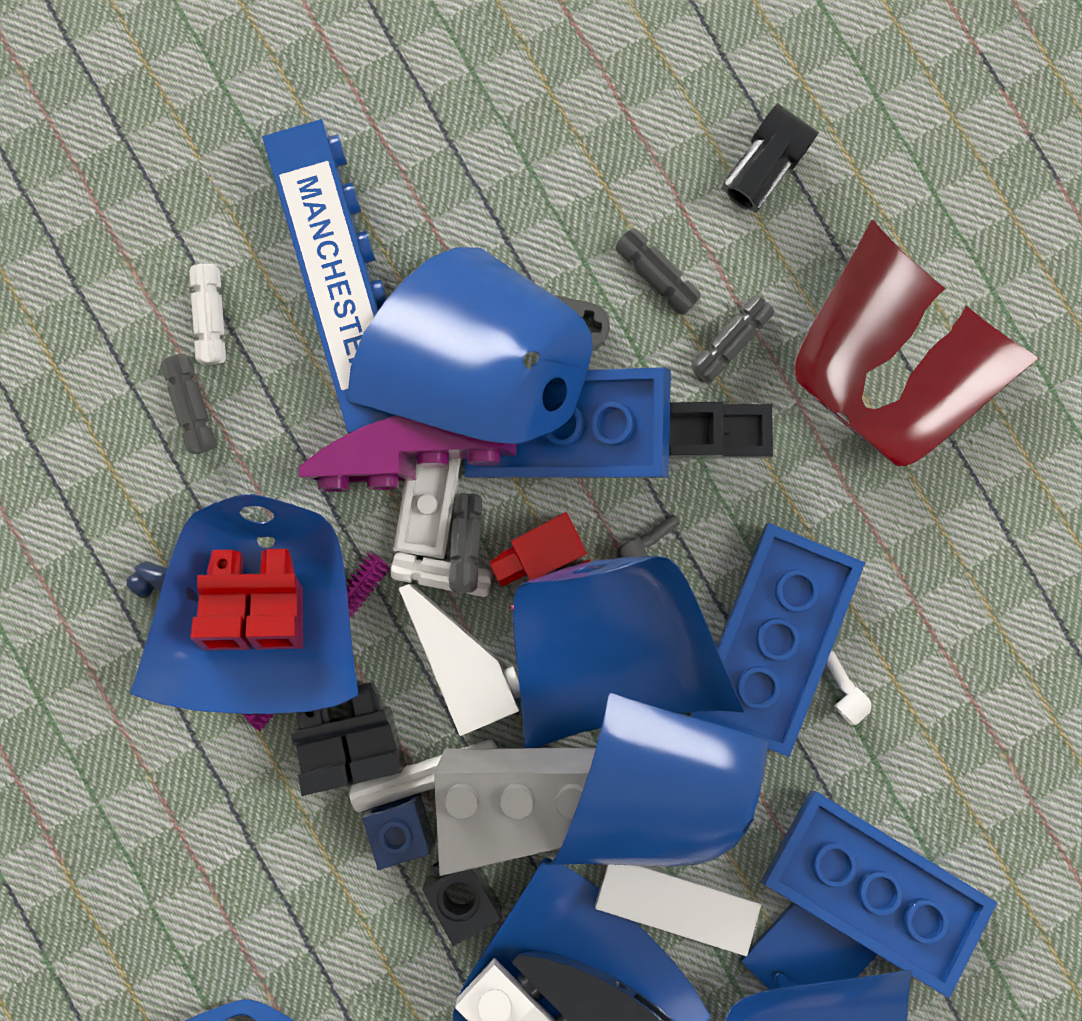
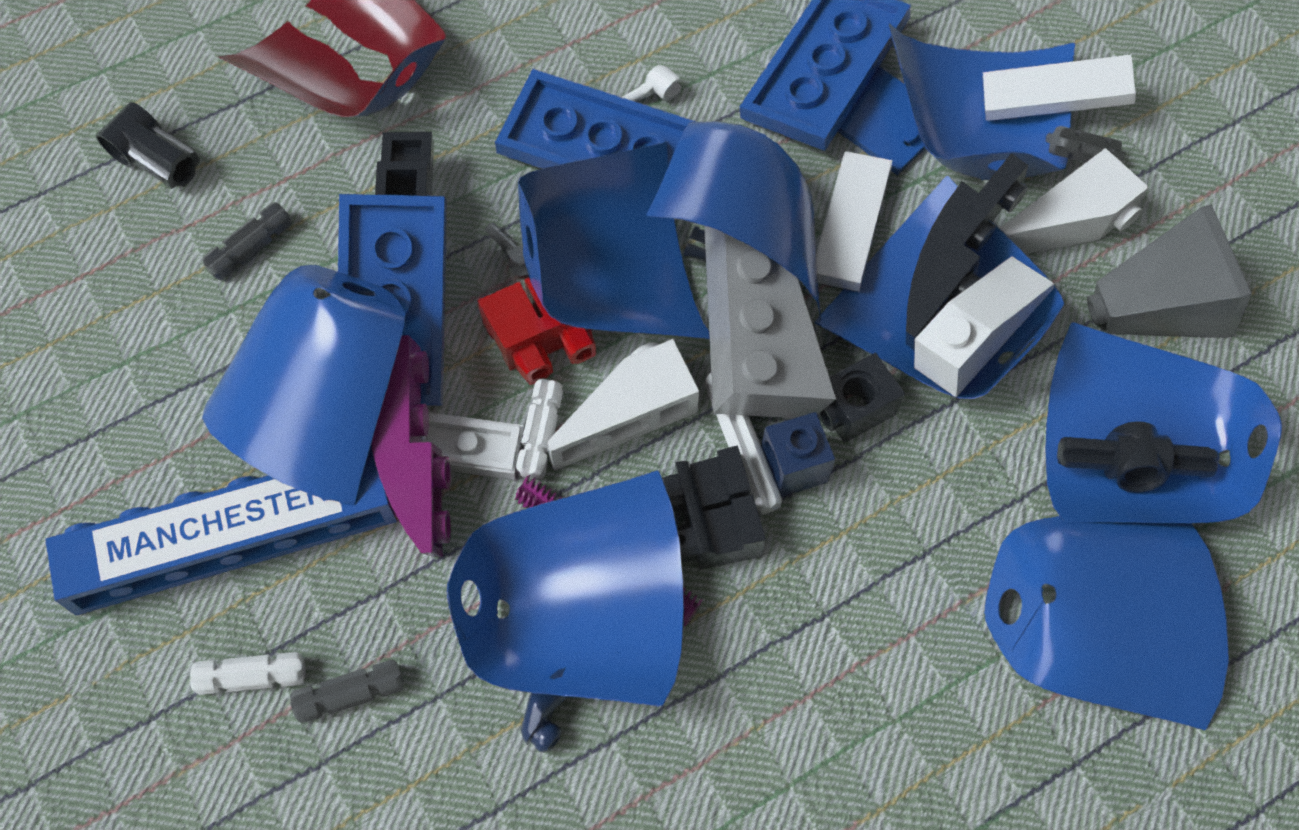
camera: 90 degrees left, 20 degrees down
(249, 607) = (570, 600): red hips -> none
(465, 543) = (507, 399): dark grey axle -> none
(732, 339) = (314, 174): dark grey axle -> none

